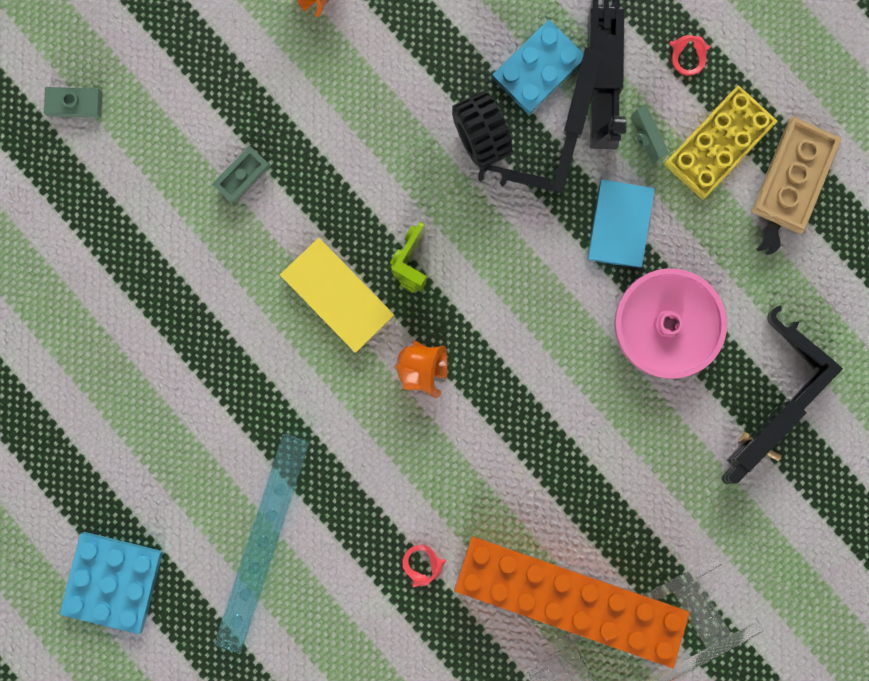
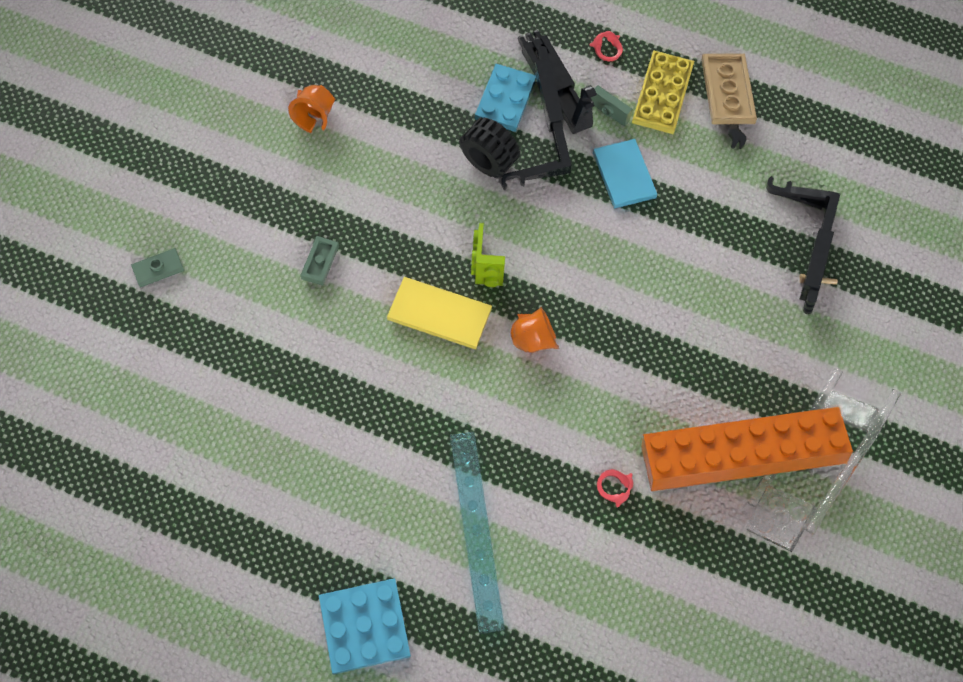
camera: 30 degrees left, 20 degrees down
(670, 323) = (700, 220): bright pink dish -> none

